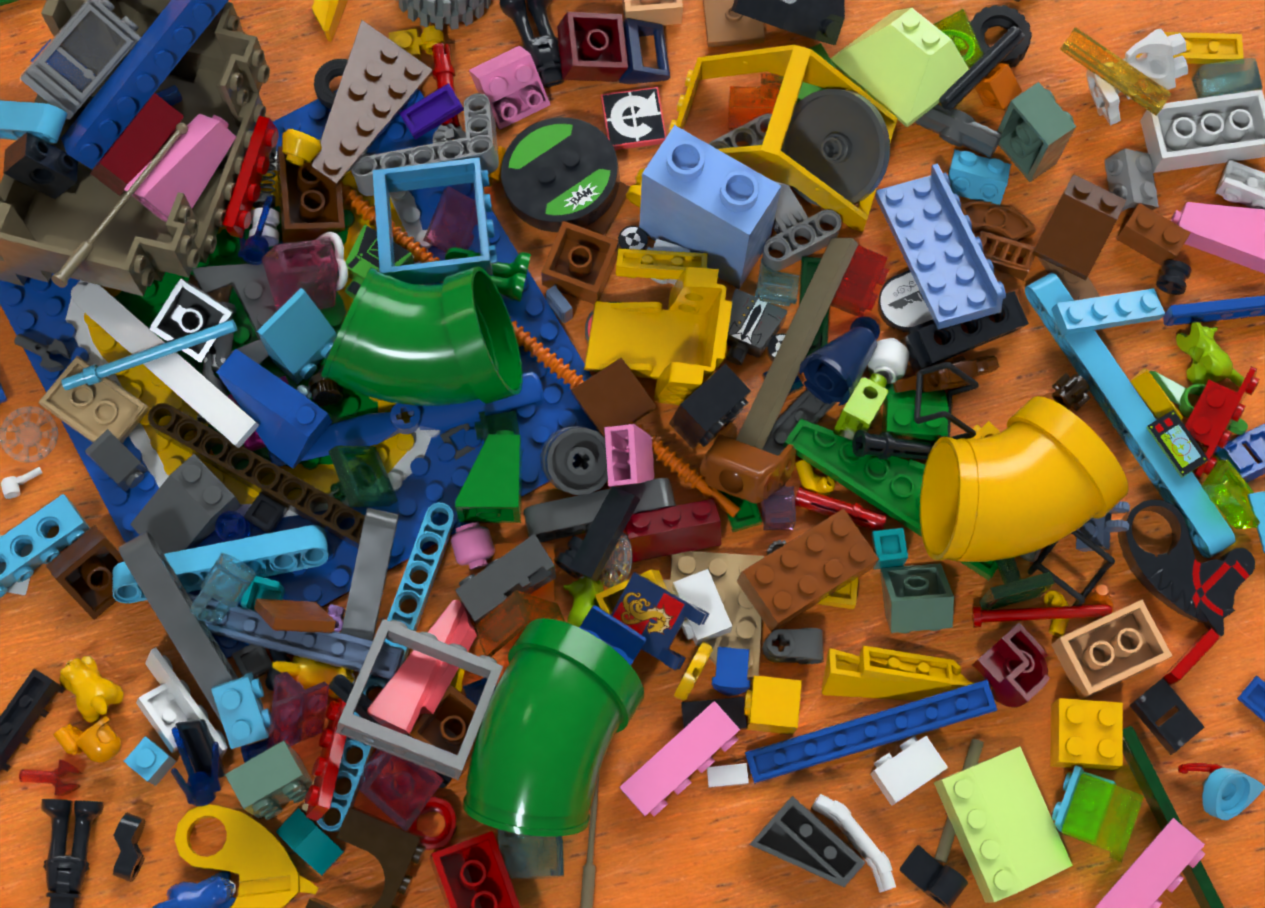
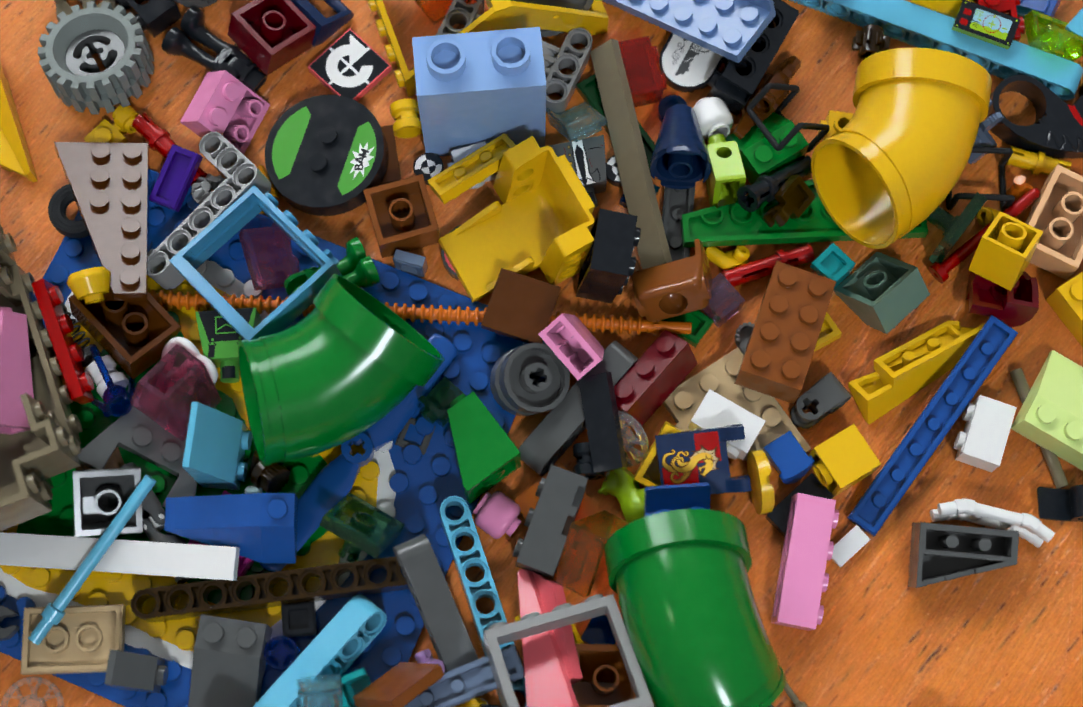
camera: 35 degrees left, 0 degrees up
(897, 471) = (792, 199): none -> dark brown plate
(1037, 636) = (1005, 250): none -> yellow head
(1133, 587) = (1035, 162): none -> yellow pin

